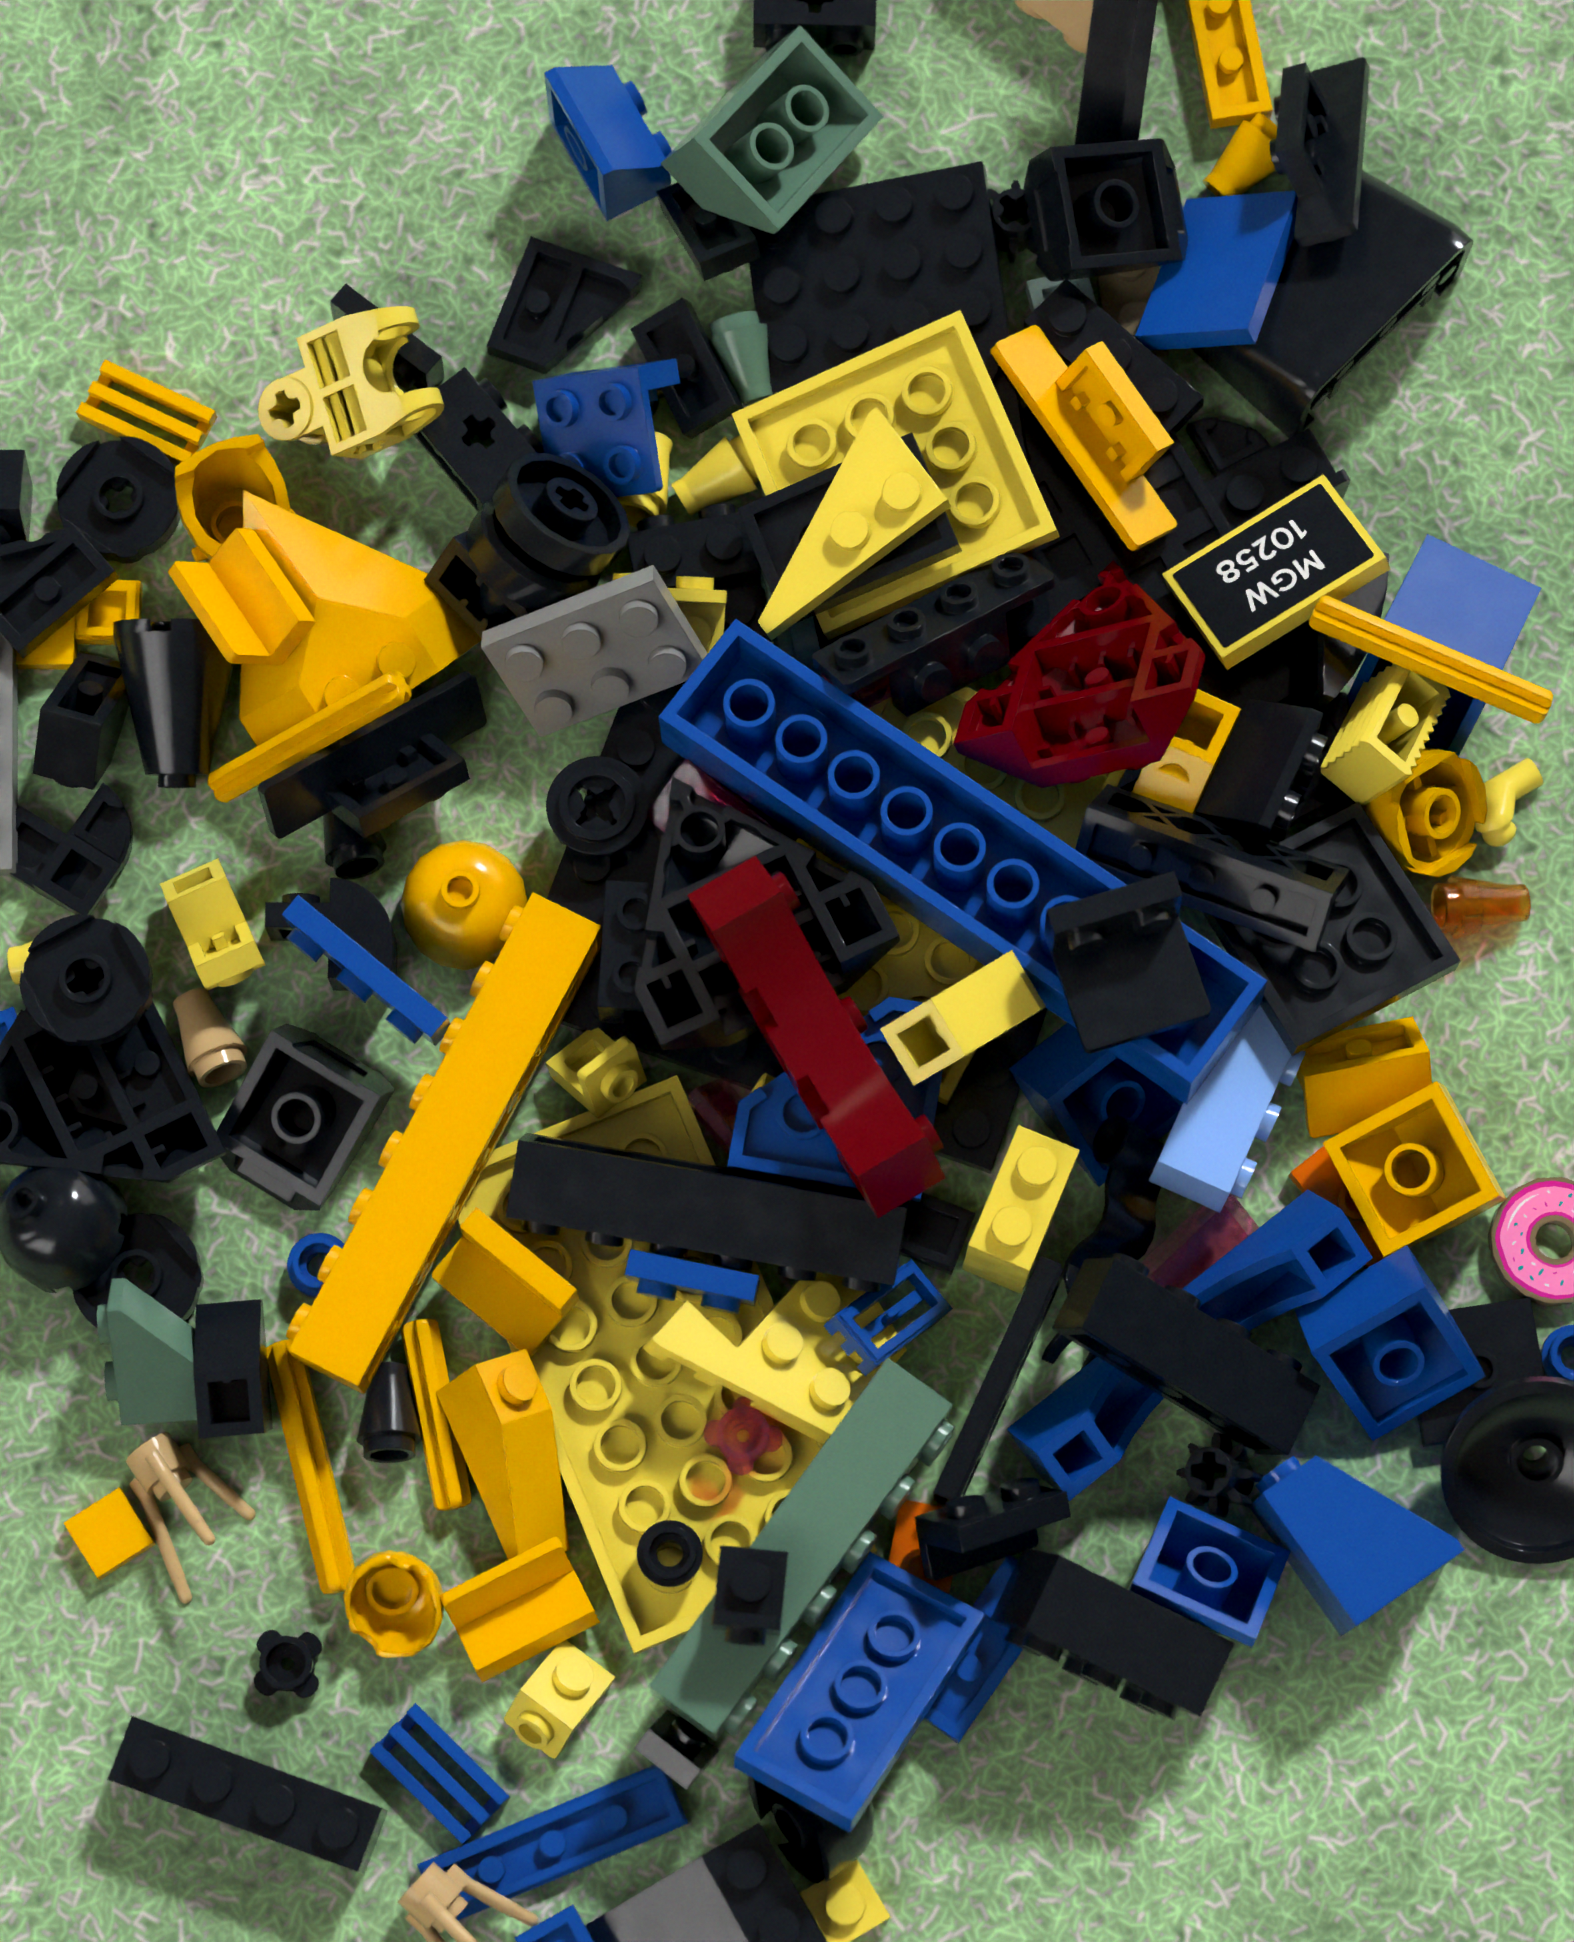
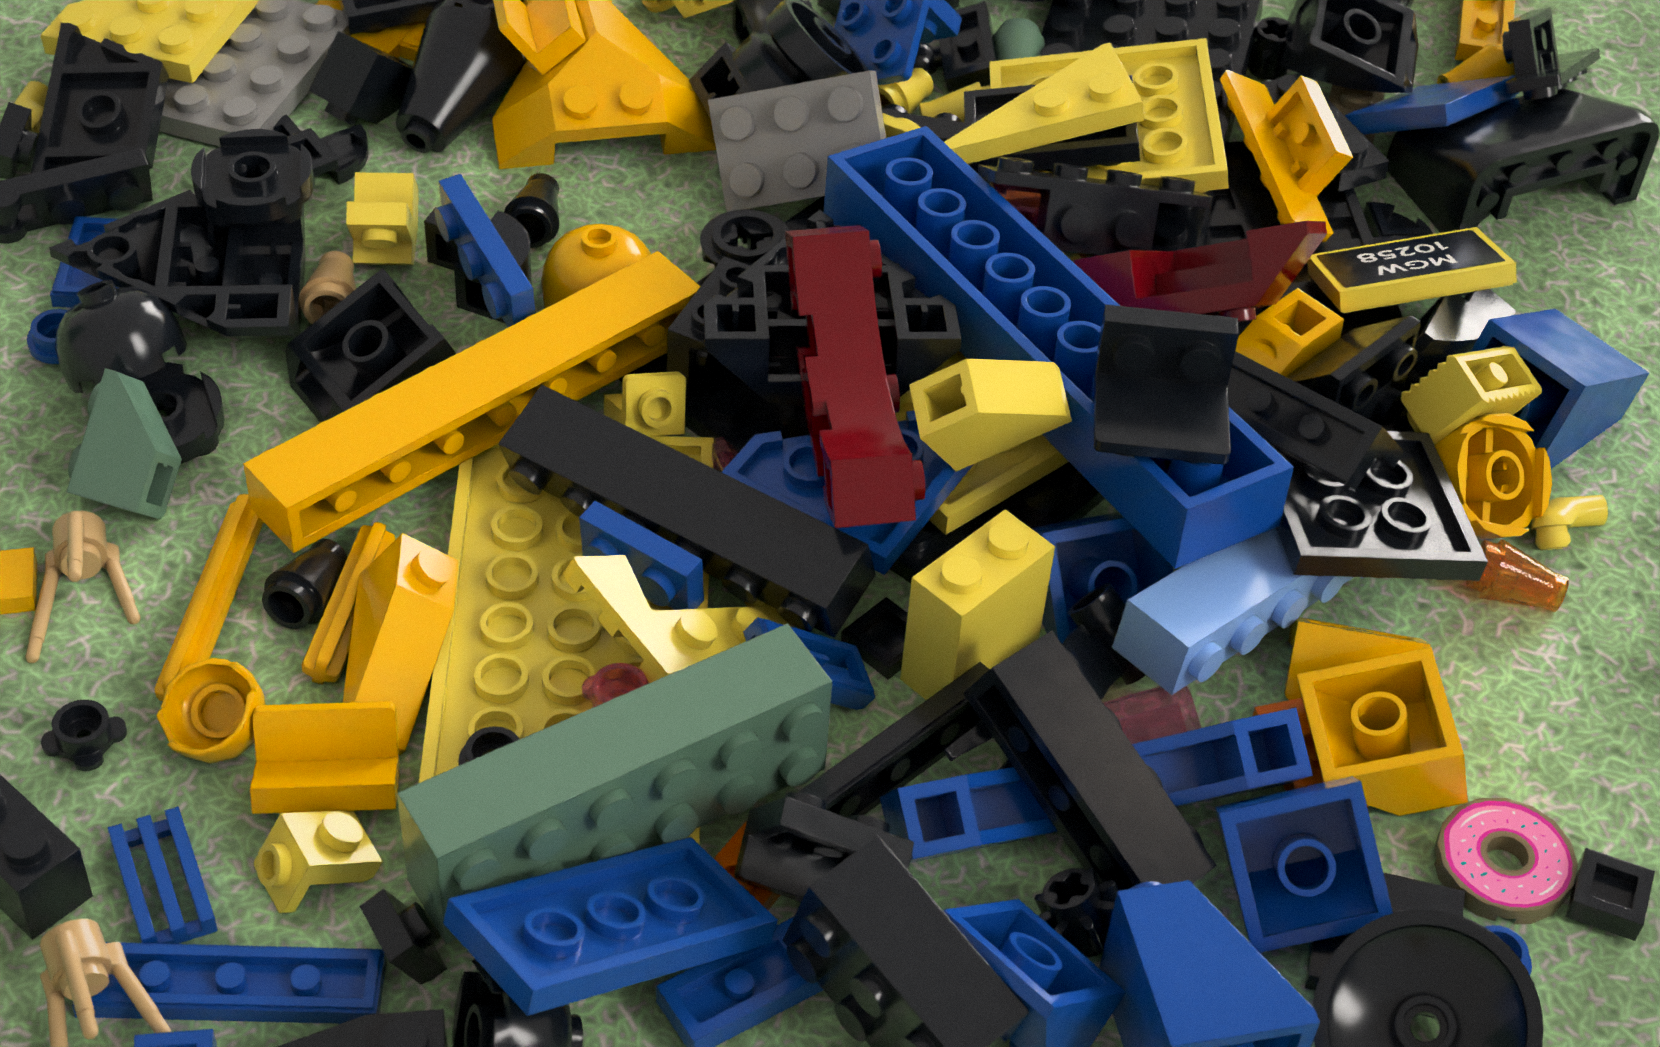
camera: 20 degrees right, 30 degrees down
(231, 1369) = (183, 497): black slope -> none
(309, 736) = (538, 116): yellow axle -> none
(382, 766) = (581, 157): black bracket -> none
(505, 1283) = (474, 510): yellow panel -> none
(749, 1594) = (541, 745): black bracket -> none
(1431, 659) = (1536, 344): yellow axle -> none

